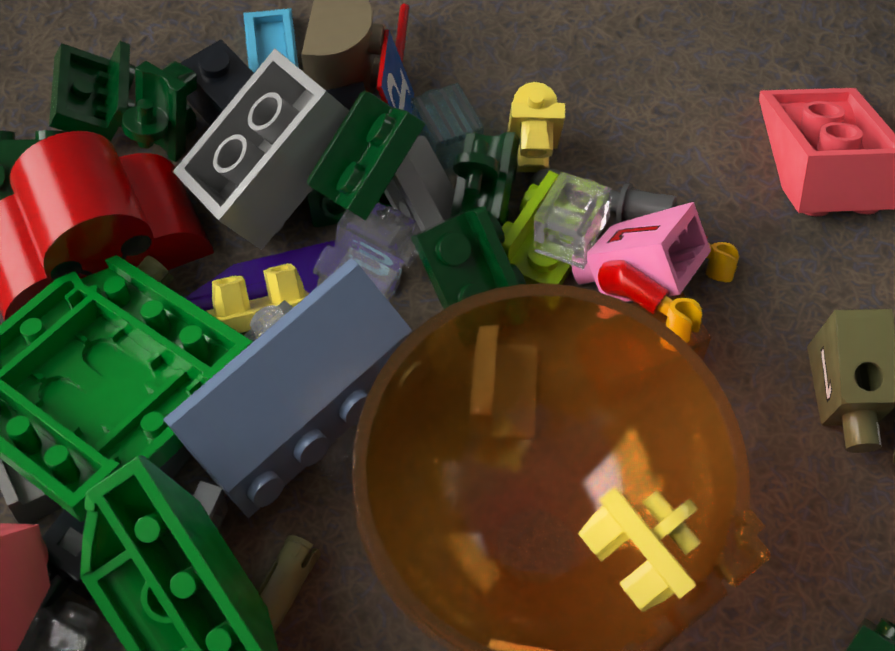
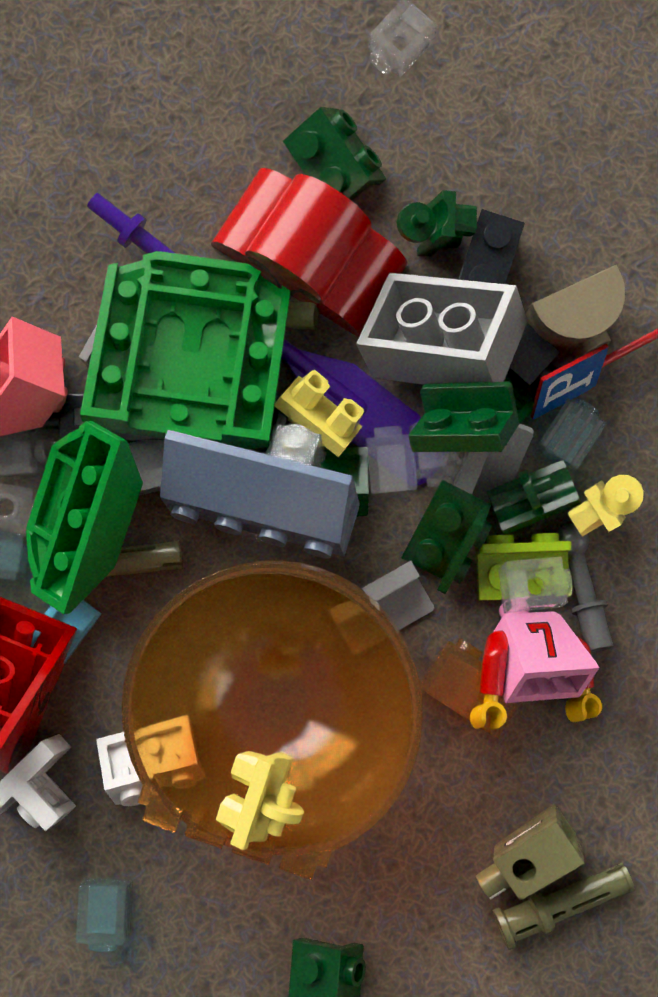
camera: 60 degrees right, 25 degrees up
(91, 90) = (426, 157): dark green bracket -> none
(268, 31) = (560, 254): medium azure tile -> none

